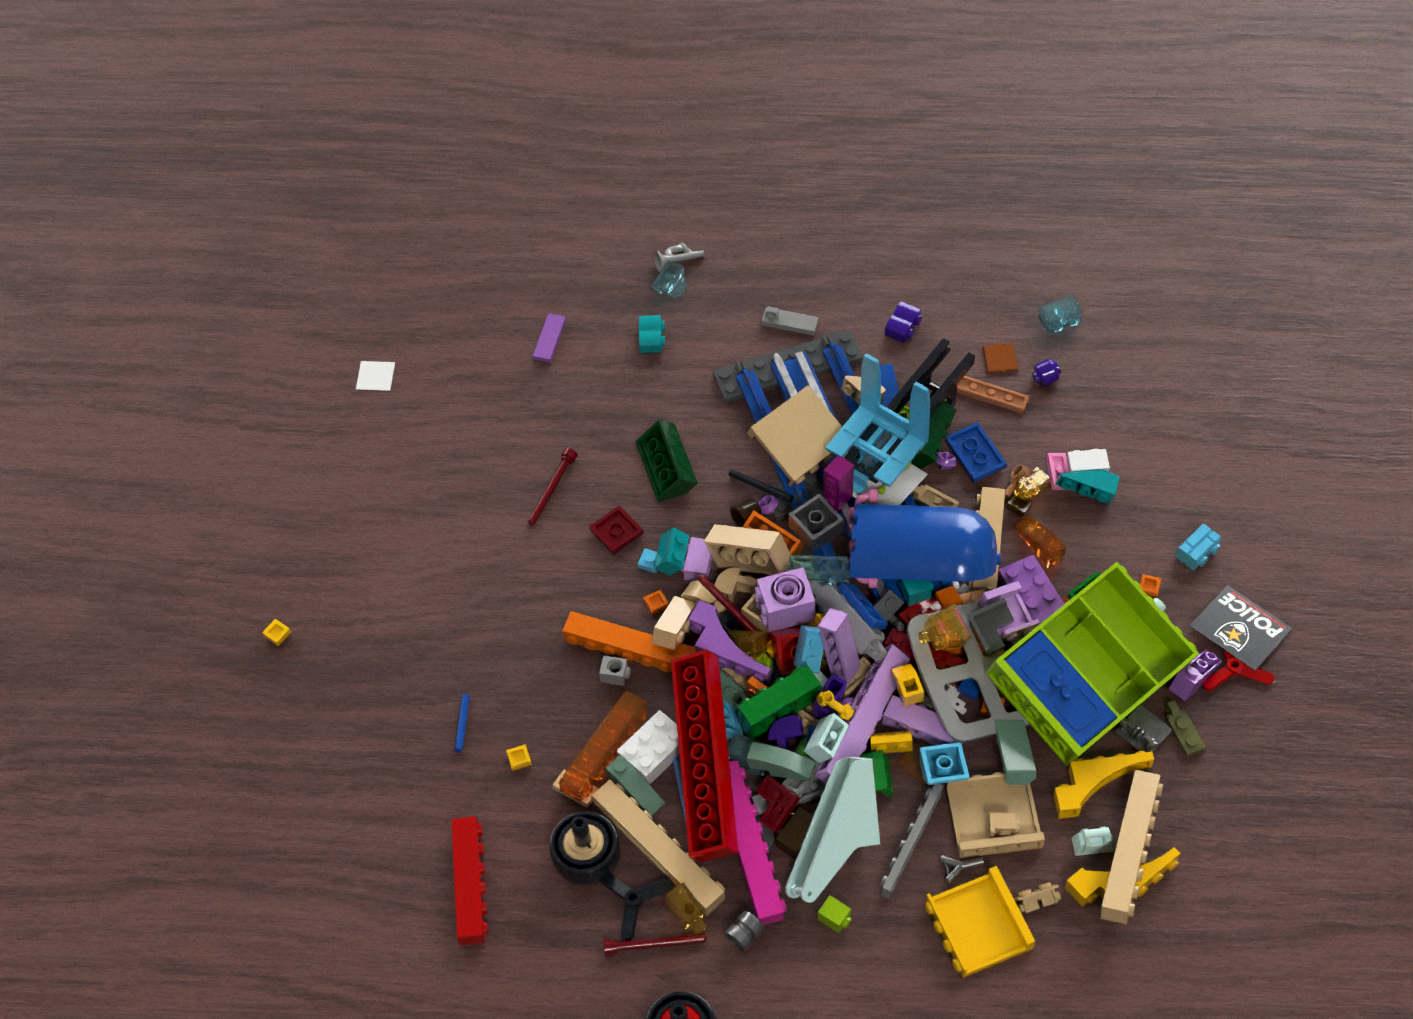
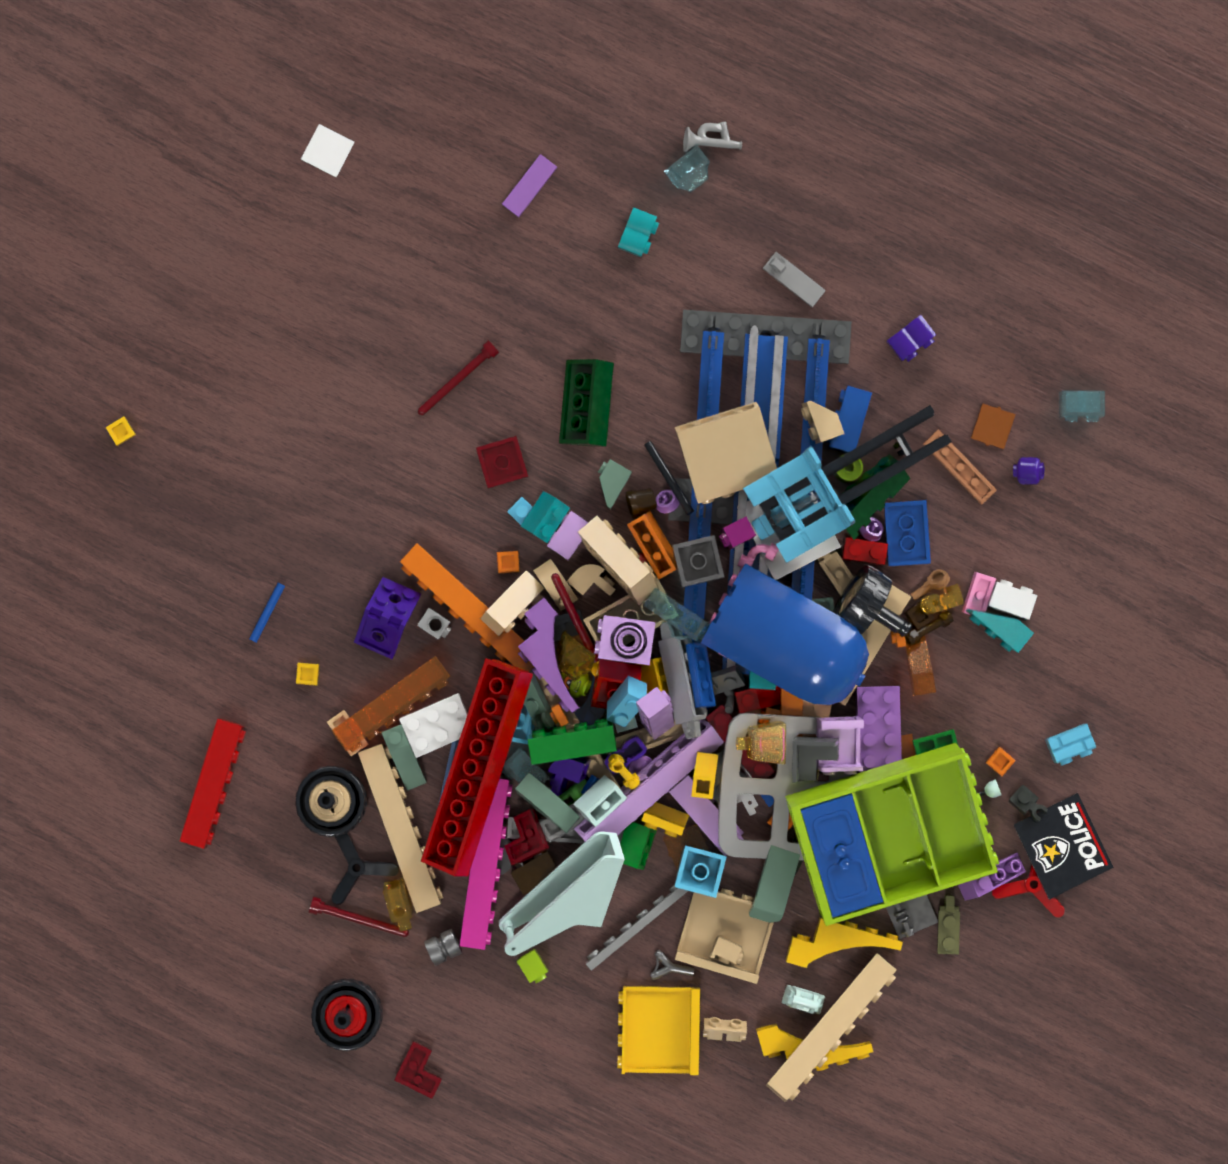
camera: 15 degrees right, 30 degrees up
(569, 673) = (386, 617): none -> dark purple bracket
(715, 505) = (612, 481): none -> sand green slope
(949, 475) = (864, 551): none -> red brick
(970, 493) = (865, 600): none -> black wheel
(1011, 525) = (897, 639): none -> orange plate
(1024, 519) = (944, 619): none -> dark brown bar
(1189, 605) = (1026, 801): none -> pearl dark grey plate

